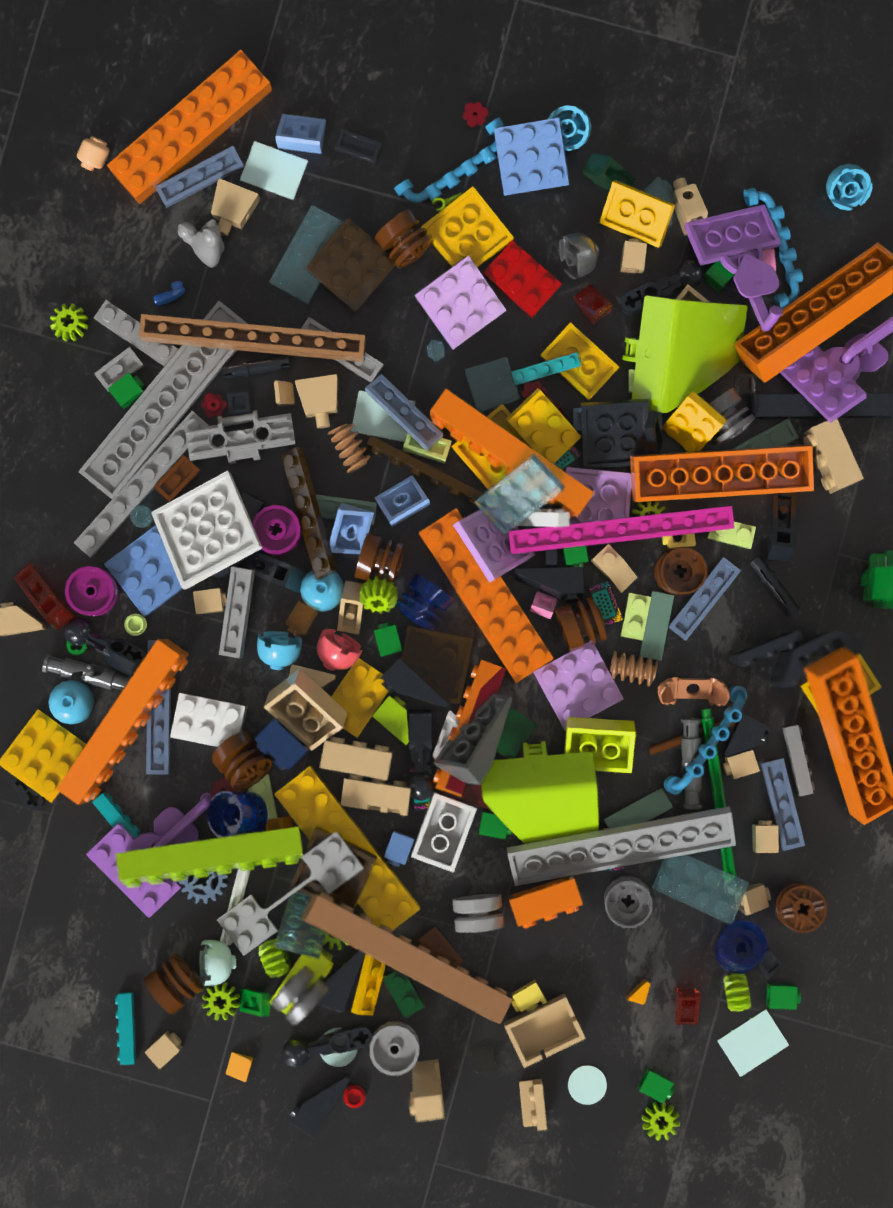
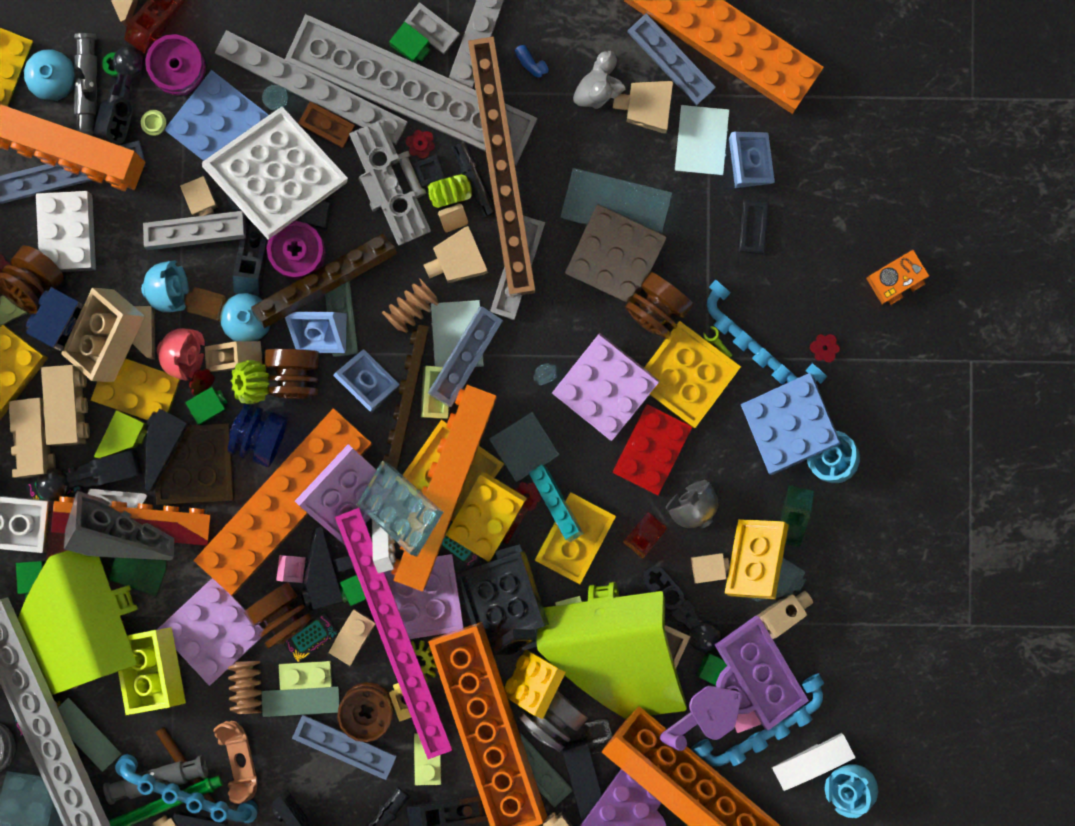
camera: 80 degrees right, 0 degrees up
(261, 388) = (449, 191): none -> lime gear
(365, 640) = (201, 381): none -> dark red plant
(432, 37) = (897, 277): none -> orange brick
(816, 212) = (813, 762): none -> white slope

